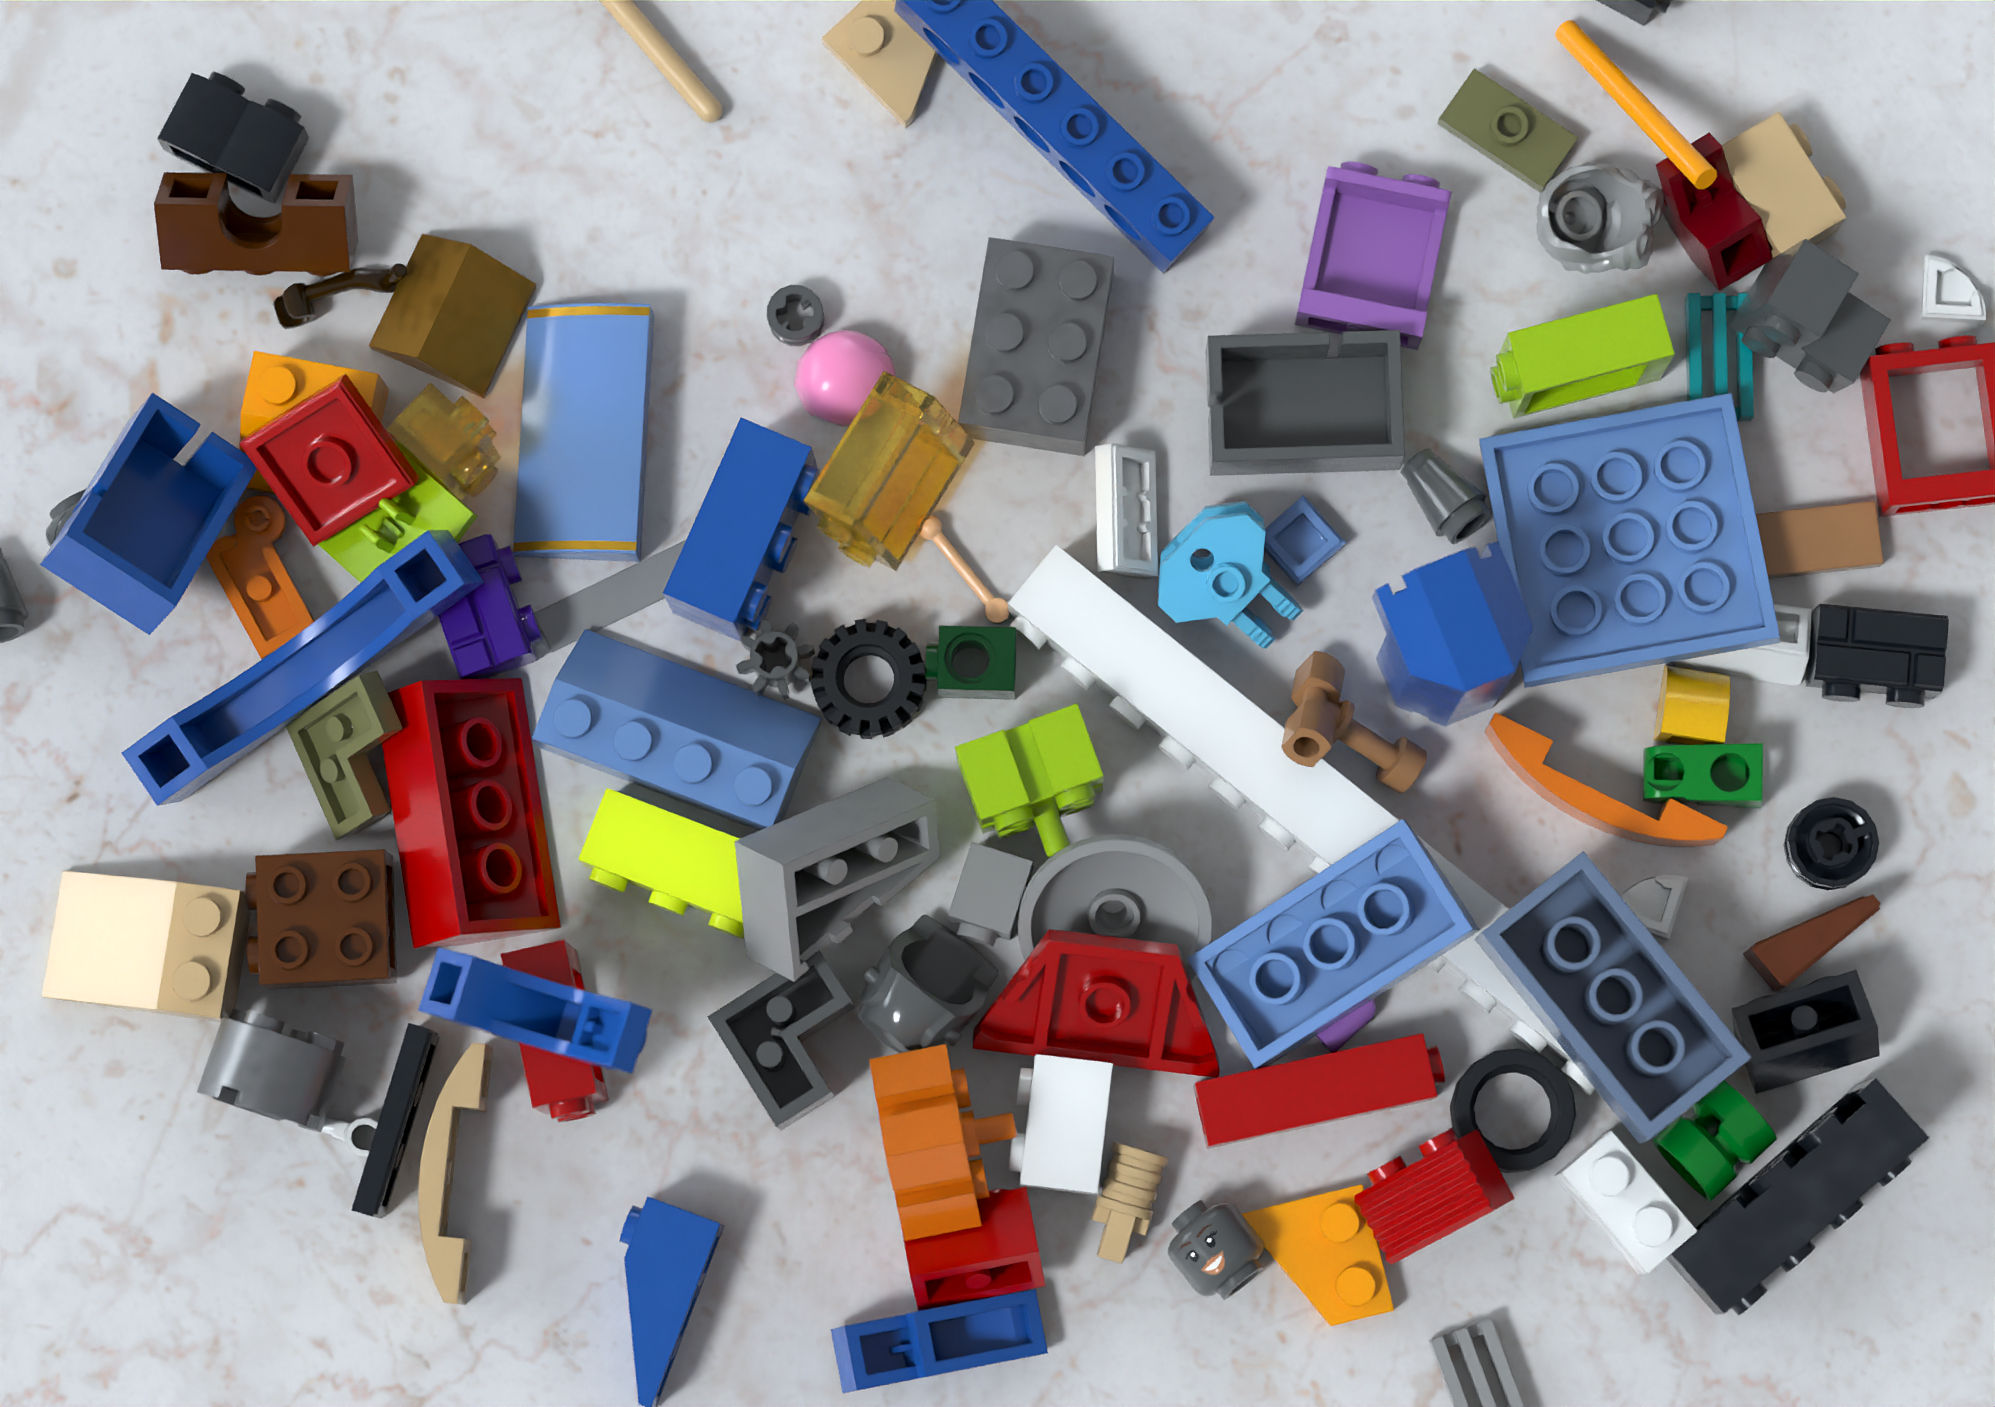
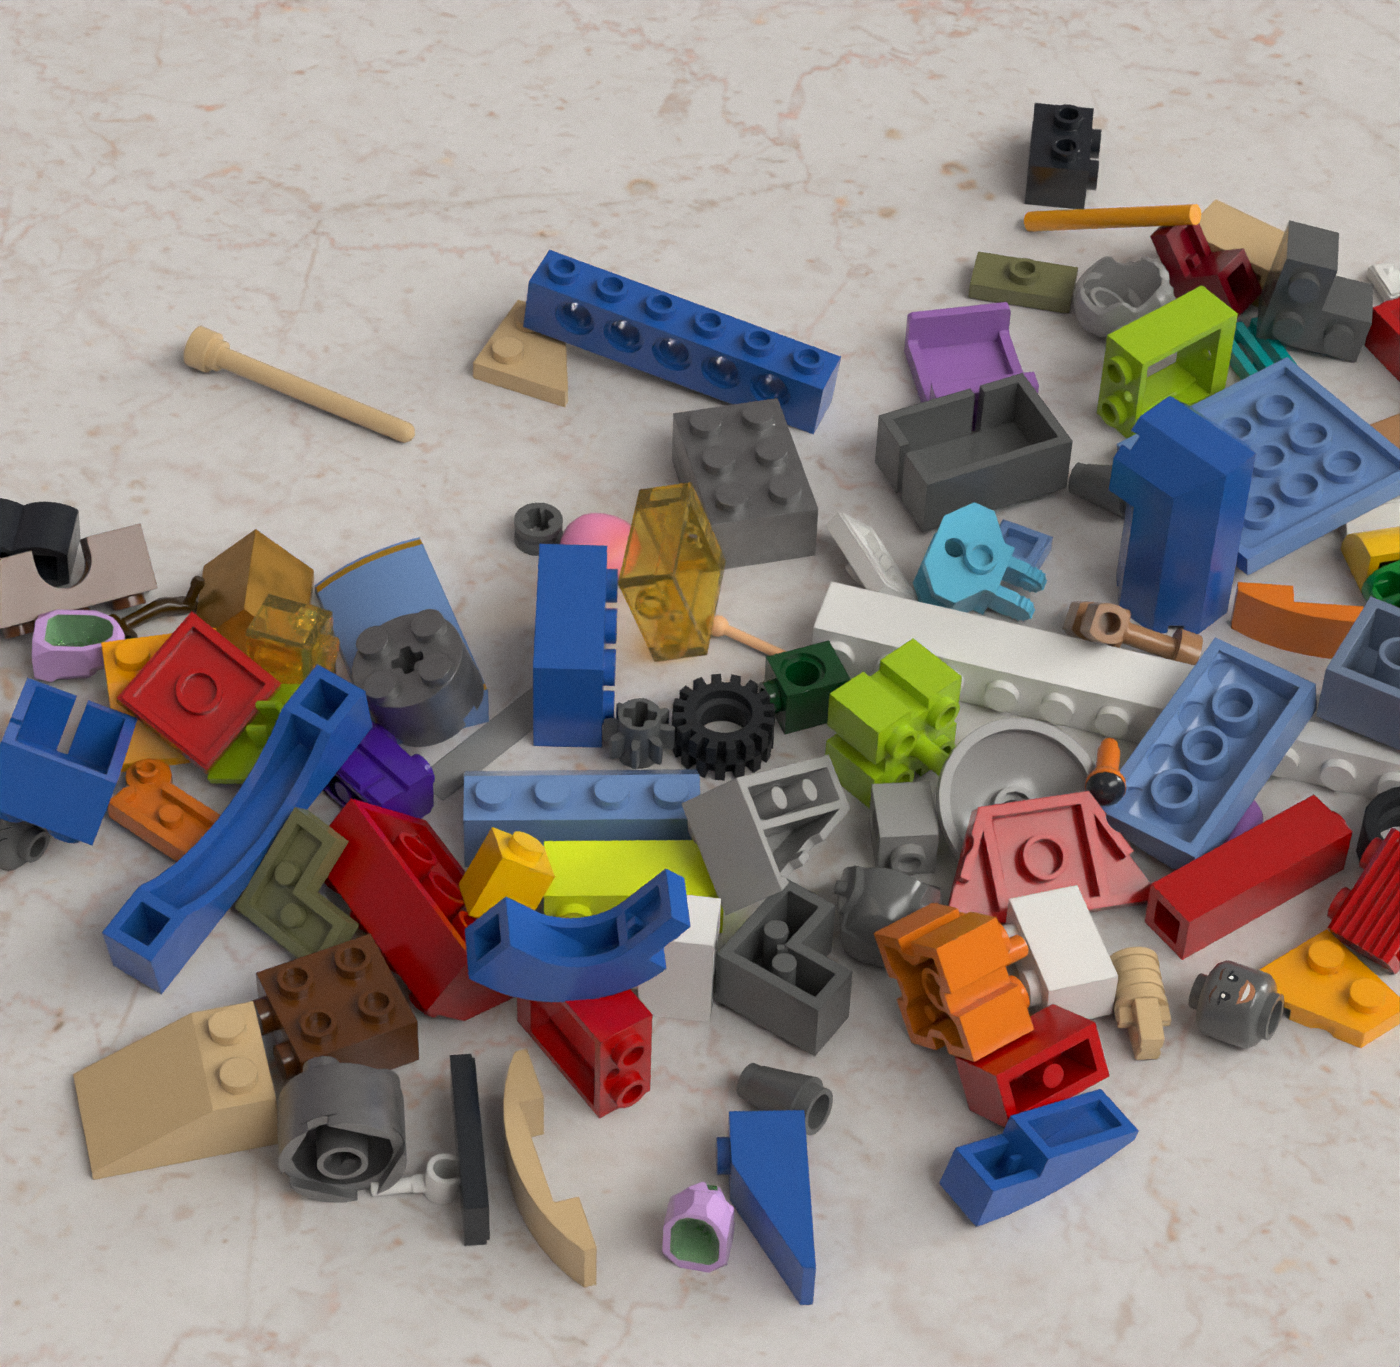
camera: 30 degrees left, 35 degrees down
(239, 317) = (69, 643): none -> lavender rock
(524, 525) = (417, 677): none -> flat silver brick
(550, 822) = (509, 868): none -> yellow brick
(575, 1299) = (699, 1228): none -> lavender rock
(676, 986) = (689, 979): none -> white brick
(724, 1177) = (785, 1090): none -> dark grey cone
(1204, 948) = (1105, 780): none -> piece

